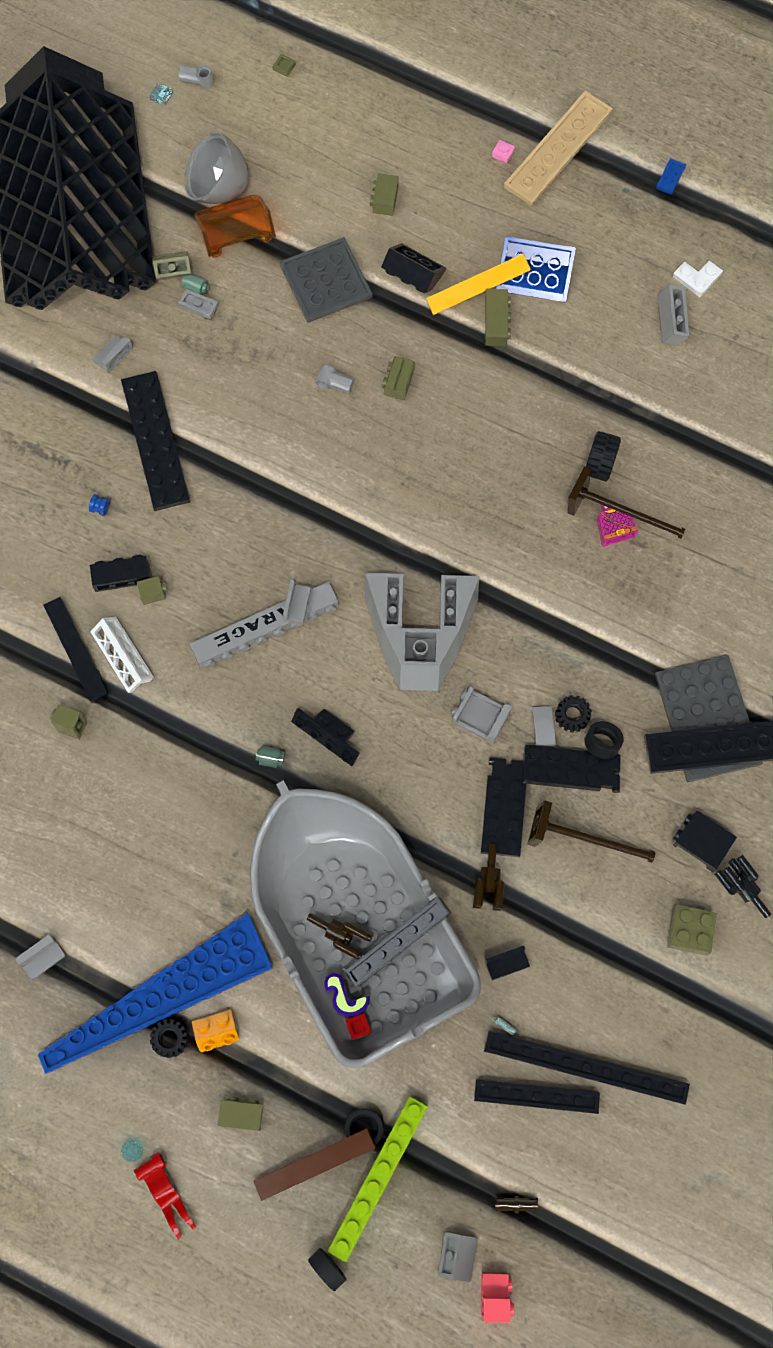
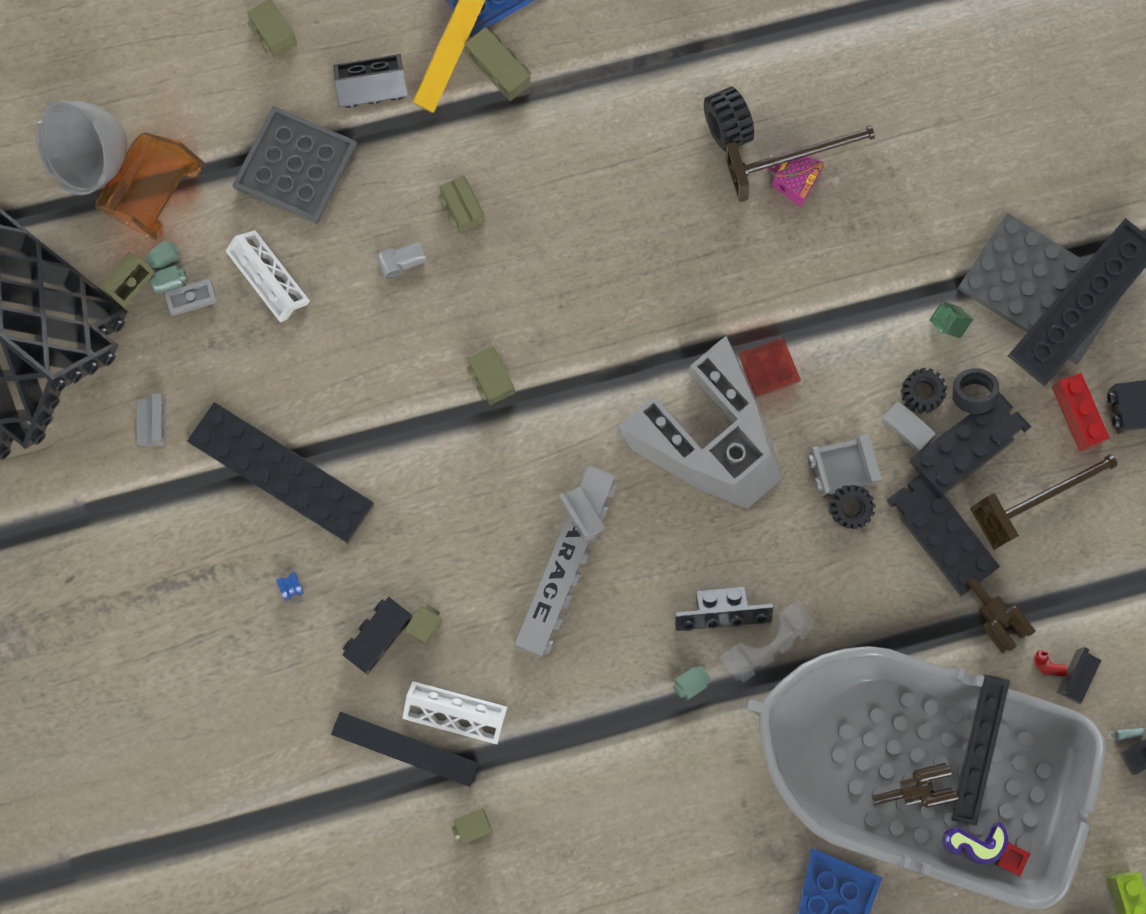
camera: 45 degrees left, 5 degrees up
(204, 268) = (162, 256): none -> sand green brick
(248, 323) = (262, 275): none -> white fence
(312, 772) = (791, 622): none -> clear arch
(323, 486) = (490, 375): none -> olive brick
(462, 729) = (863, 515): none -> black tyre
(491, 620) = (769, 367): none -> clear red plate
(492, 936) = (1046, 667): none -> red arm
(630, 687) = (951, 319): none -> clear green panel
(659, 809) = (1080, 412): none -> red brick

